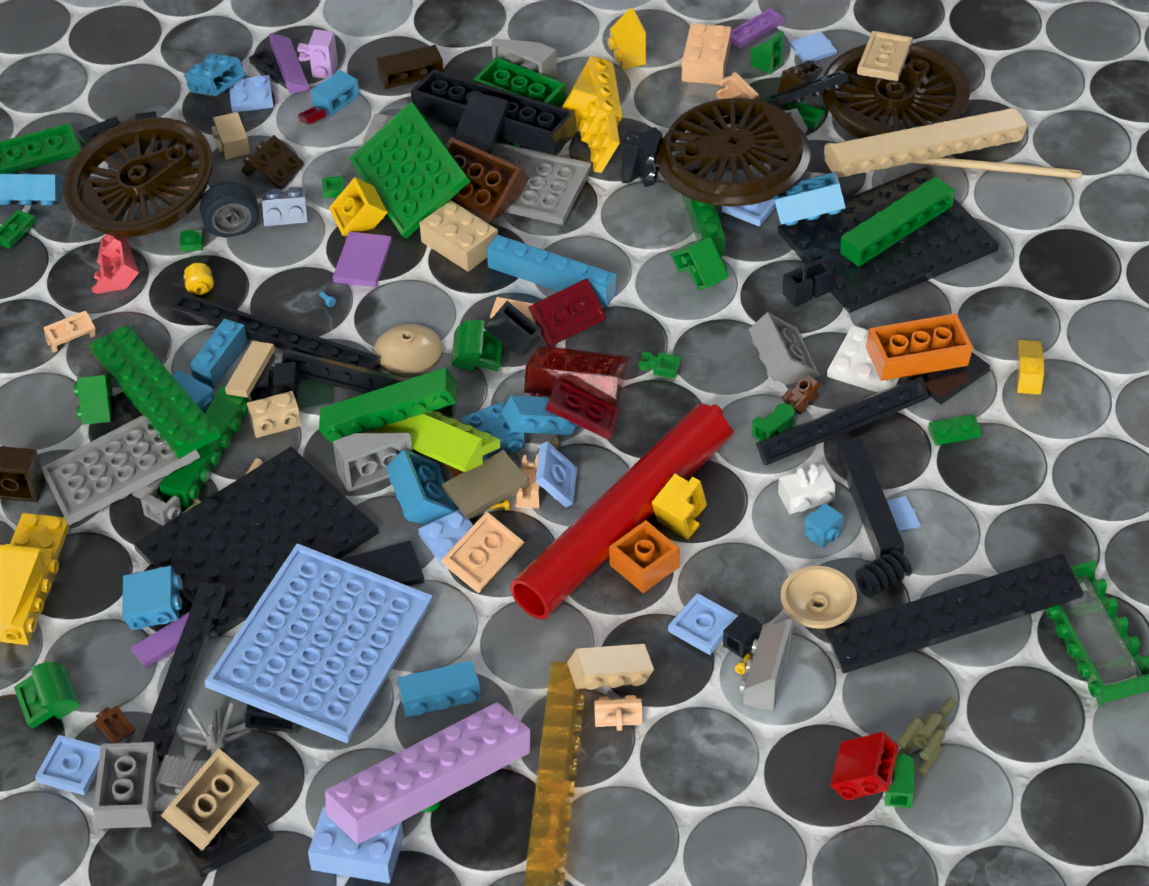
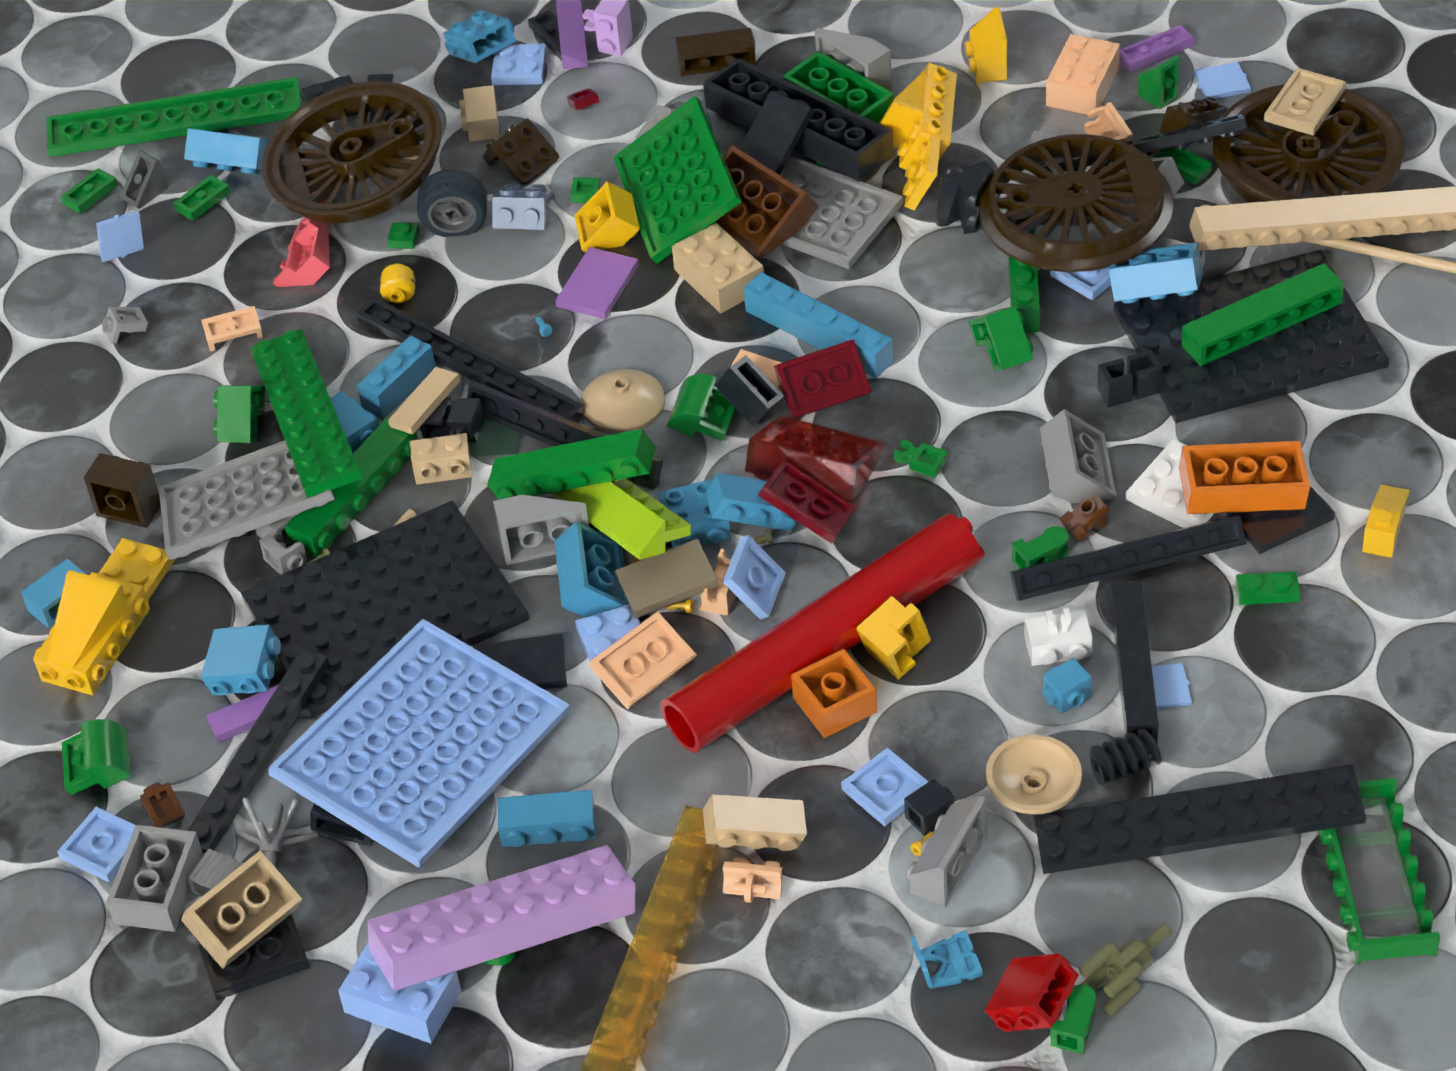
camera: 15 degrees right, 0 degrees up
(335, 92) = (617, 74): dark azure brick -> none
(793, 747) = (956, 957): none -> dark azure piece

